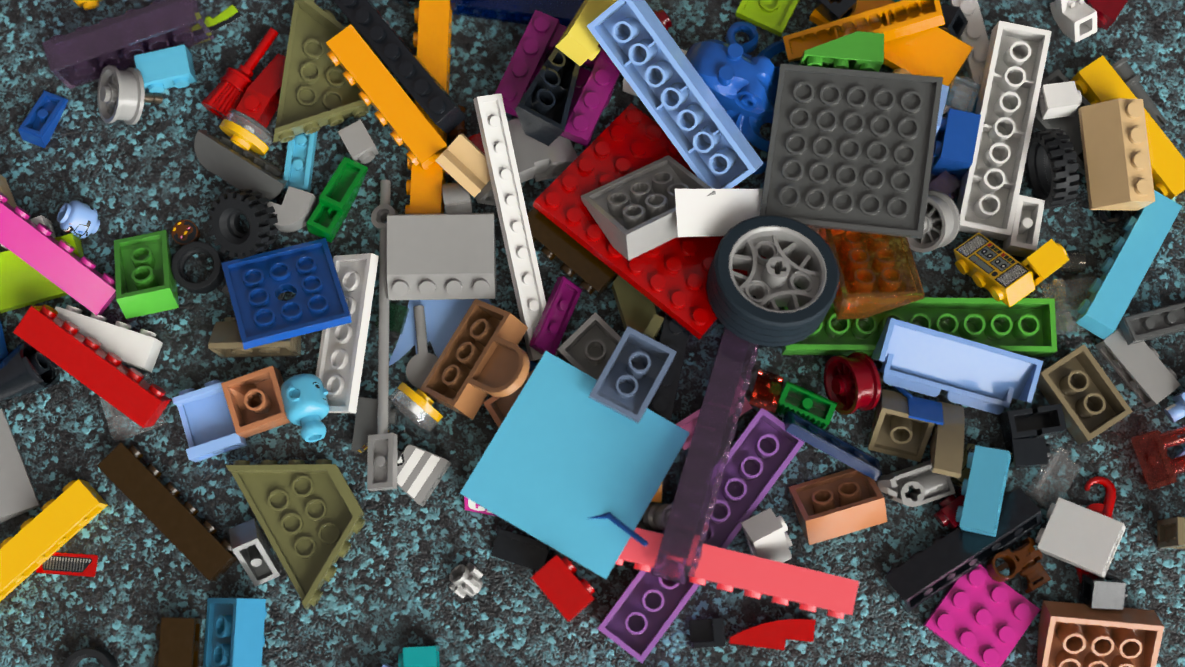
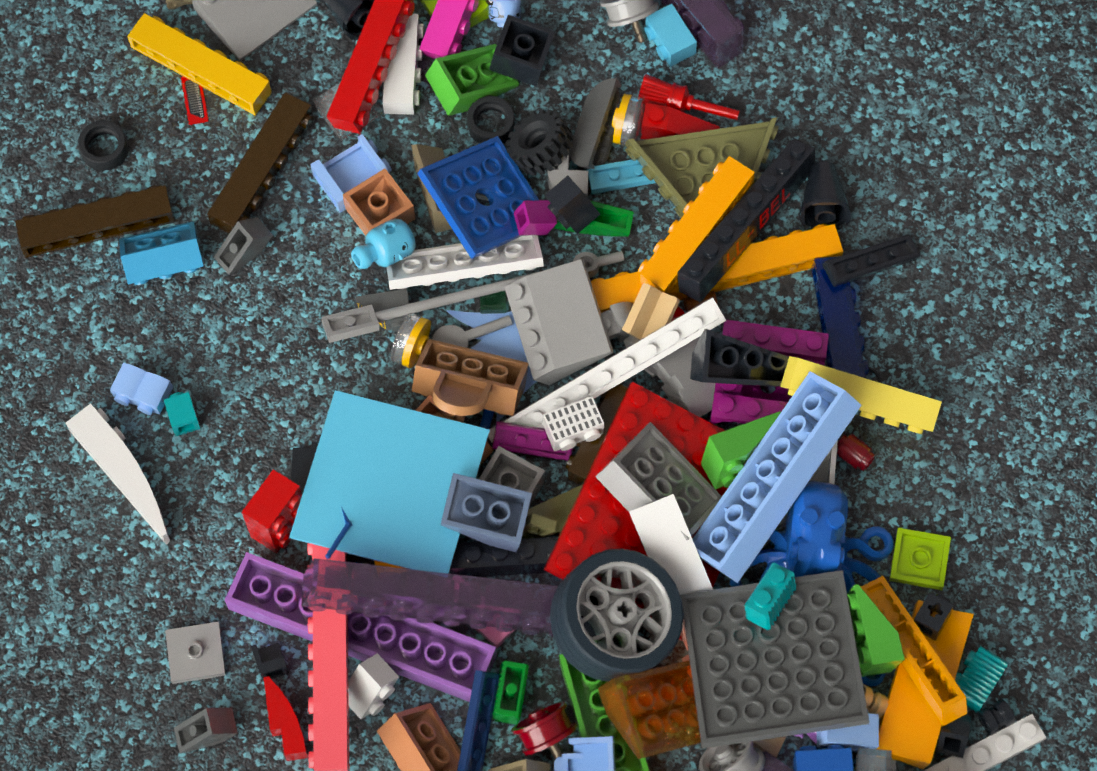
camera: 75 degrees right, 10 degrees down
(133, 213) = (521, 50): none -> black brick
(185, 232) = (521, 100): reddish brown tile -> none
(224, 18) = (740, 71): lime sticker -> none
(304, 514) = (287, 279): olive piece -> none
(324, 249) = (534, 218): none -> magenta brick
(327, 207) = (571, 205): none -> black brick
(358, 142) = (651, 220): light grey brick -> none
(419, 472) = (352, 362): torso -> none
(465, 580) = (263, 431): light grey gear -> none
(556, 271) = (573, 424): none -> white brick
(638, 130) = (731, 449): none -> bright green slope
(766, 390) = (515, 649): clear red slope -> none
(793, 132) = (770, 596): none -> teal brick

